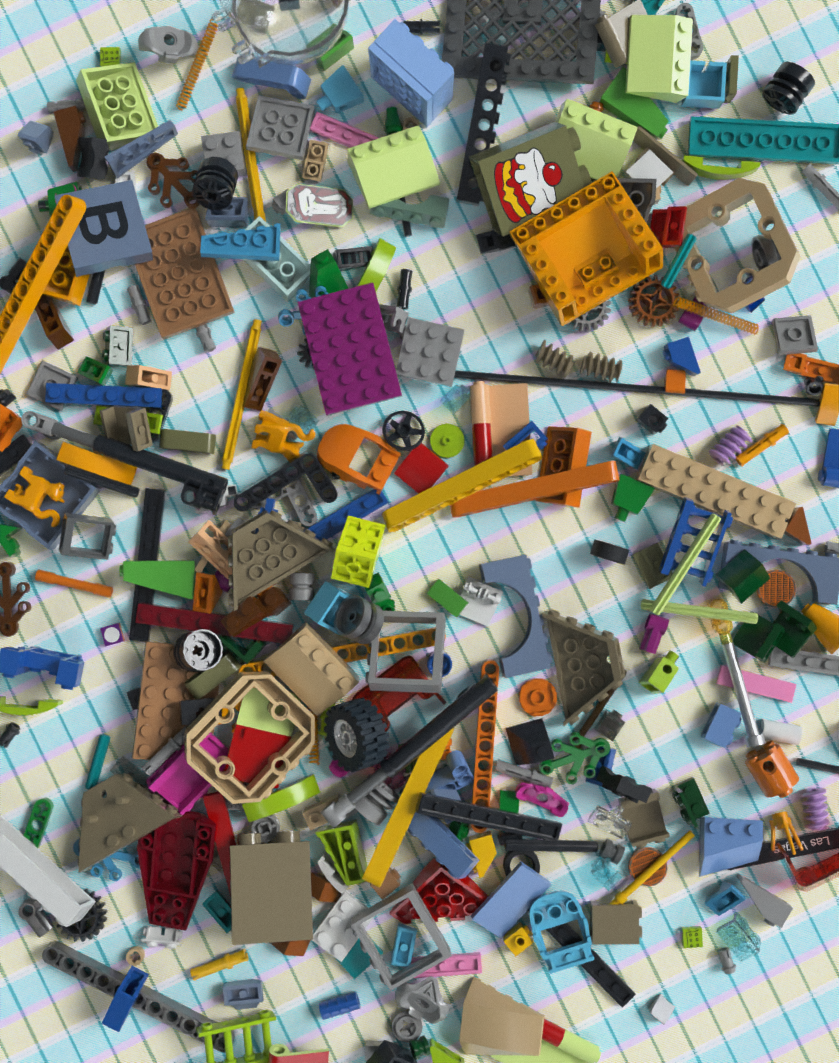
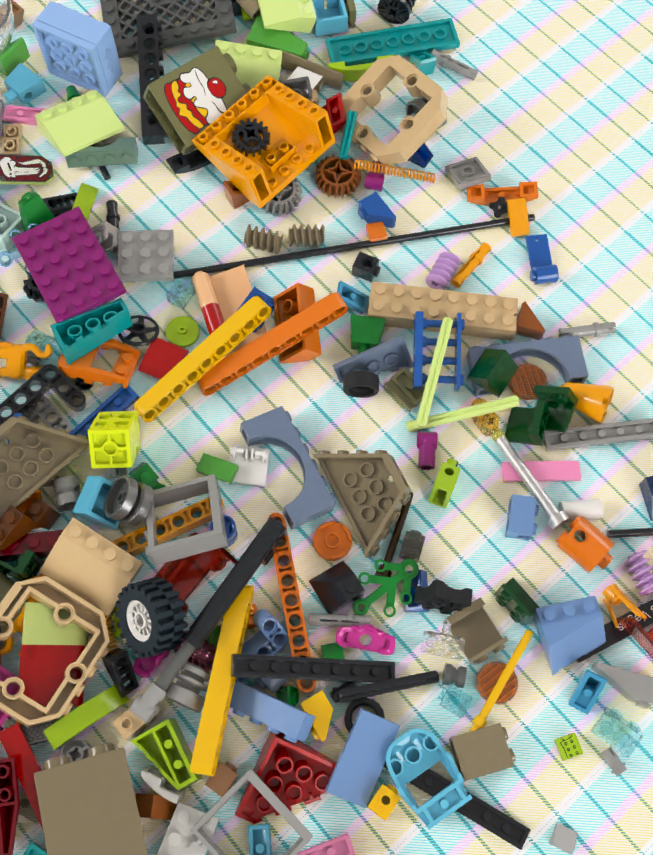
camera: 25 degrees left, 20 degrees down
(318, 765) = (112, 662): none -> black slope
(356, 426) = (90, 329): none -> teal wedge
(567, 238) = (251, 137): none -> black gear
(628, 529) = (380, 358): none -> sand blue wing
(792, 176) = (424, 62): none -> teal slope

